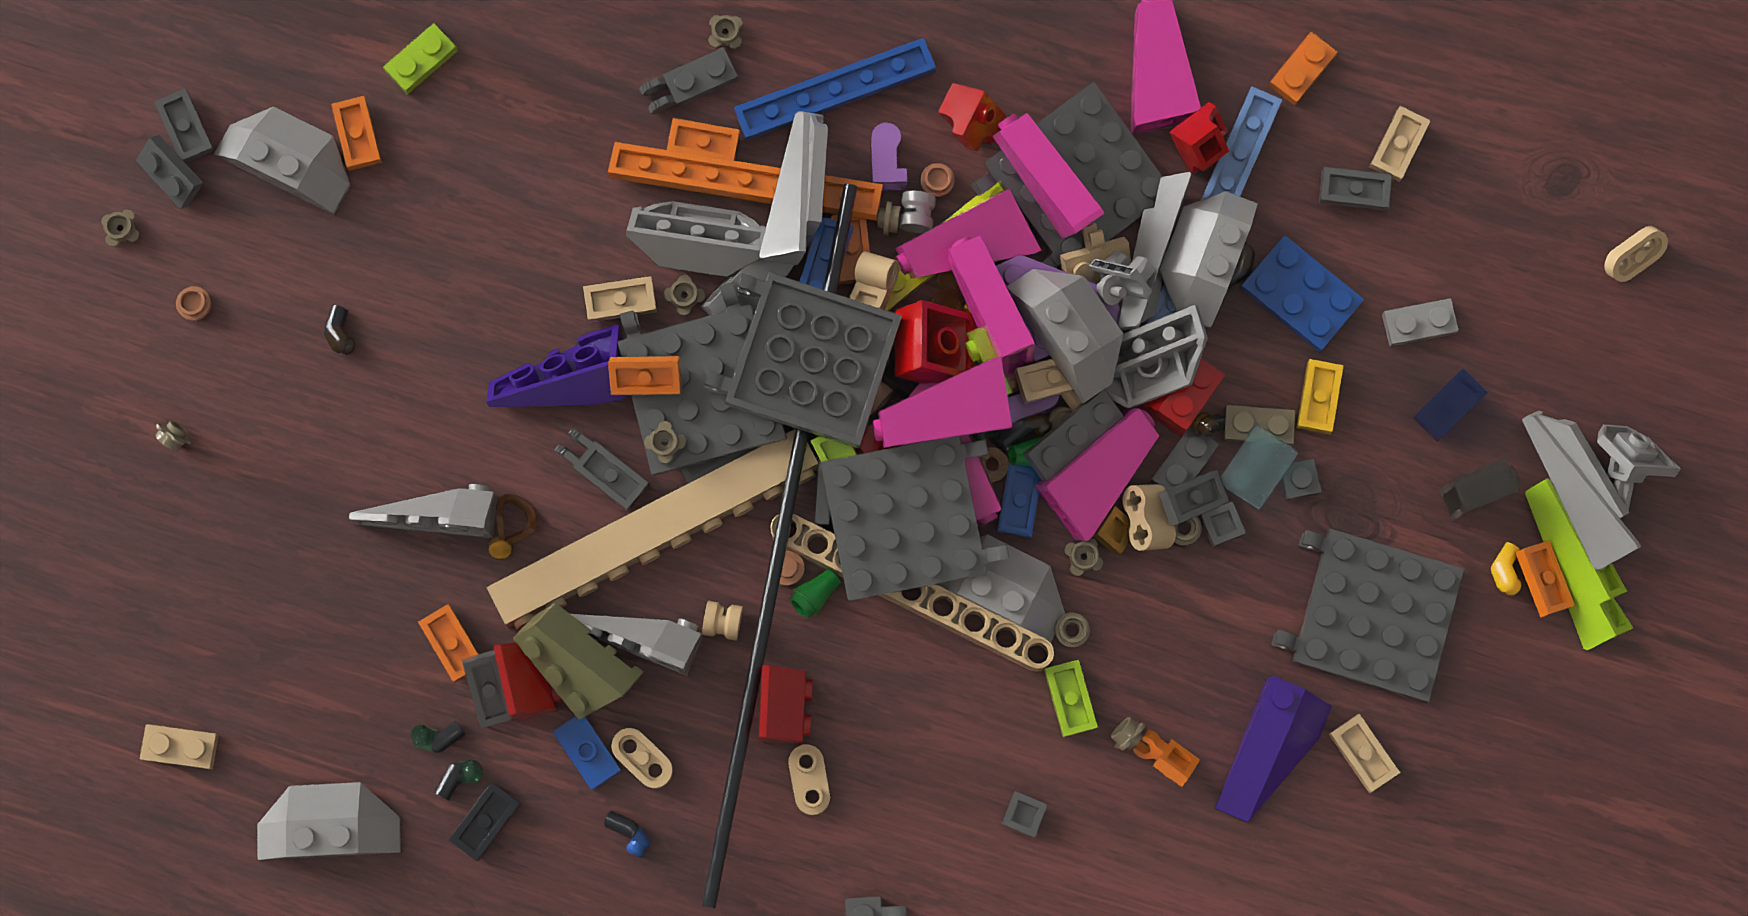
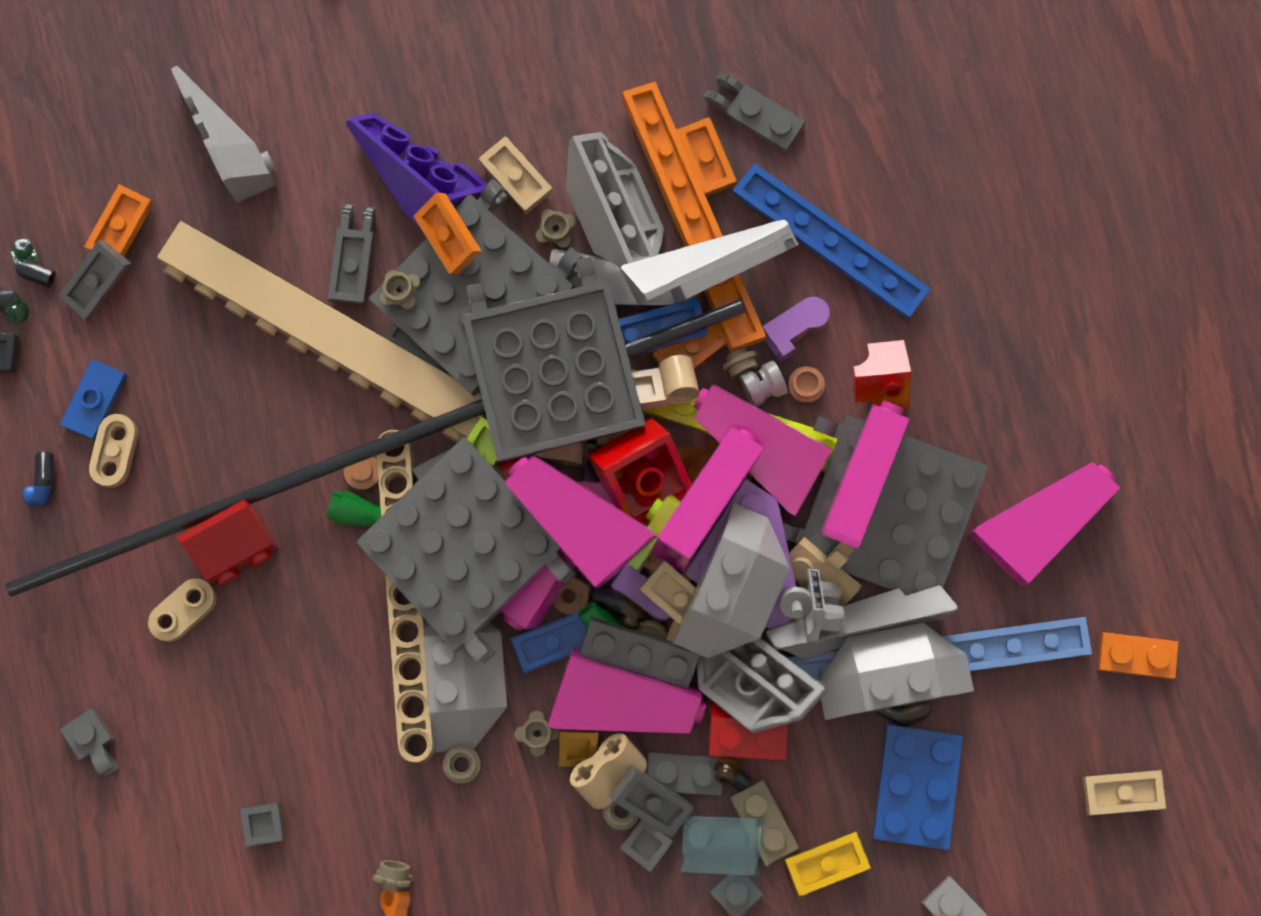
camera: 65 degrees right, 0 degrees up
(501, 546) = (230, 211): reddish brown piece -> none
(523, 685) = (119, 305): red slope -> none
(574, 662) = (154, 334): olive wedge -> none
(652, 639) = (220, 398): light grey wedge -> none
(720, 23) = (825, 104): dark tan plate -> none
(722, 620) = (278, 443): tan wheel -> none
(1070, 698) = (395, 802): lime plate -> none
(1201, 138) = (1002, 599): red brick -> none
(1355, 188) = (1052, 776): dark grey plate -> none

